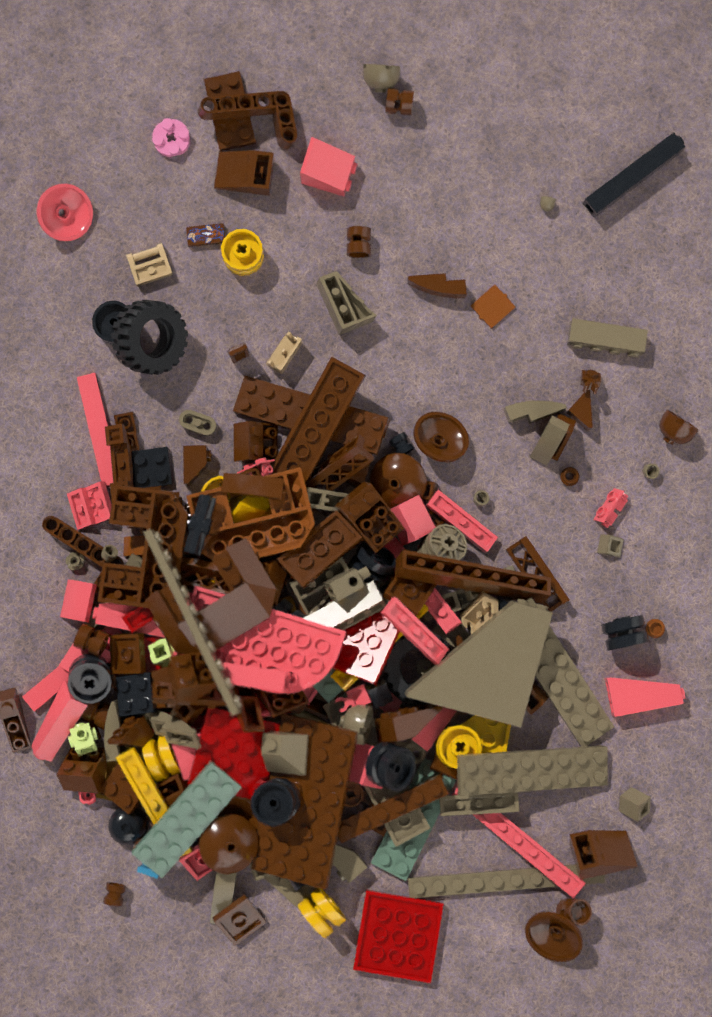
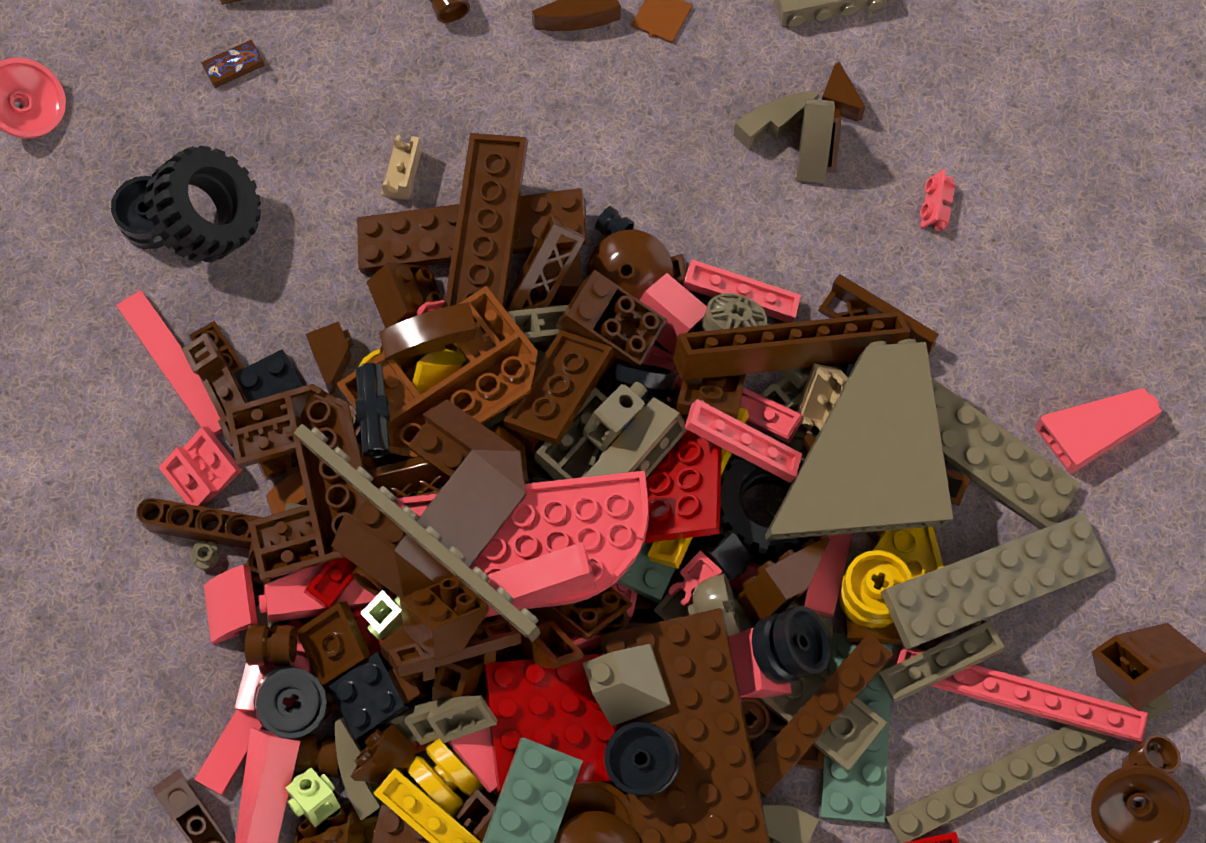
camera: 20 degrees left, 15 degrees down
(109, 549) = (251, 512): dark tan hinge -> none
(150, 270) = (173, 131): tan plate -> none
(198, 422) = (315, 301): dark tan plate -> none
(232, 255) = (292, 62): yellow wheel -> none
(238, 352) = (337, 188): reddish brown slope -> none
(343, 305) = (457, 78): dark tan wedge -> none
(441, 437) = (664, 192): reddish brown dish -> none
(483, 496) = (754, 254): dark tan hinge -> none
(574, 472) = (866, 177): reddish brown plate -> none
(590, 380) = (834, 52): reddish brown plate -> none
(610, 545) = (959, 251): dark tan slope -> none
(625, 633) = (1035, 347): black wheel -> none
(634, 804) = (1161, 578): dark tan panel -> none
(653, 473) = (973, 137): dark tan hinge -> none
(655, 628) = (1072, 333): dark orange plate -> none
(676, 429) = (977, 69): reddish brown cylinder -> none

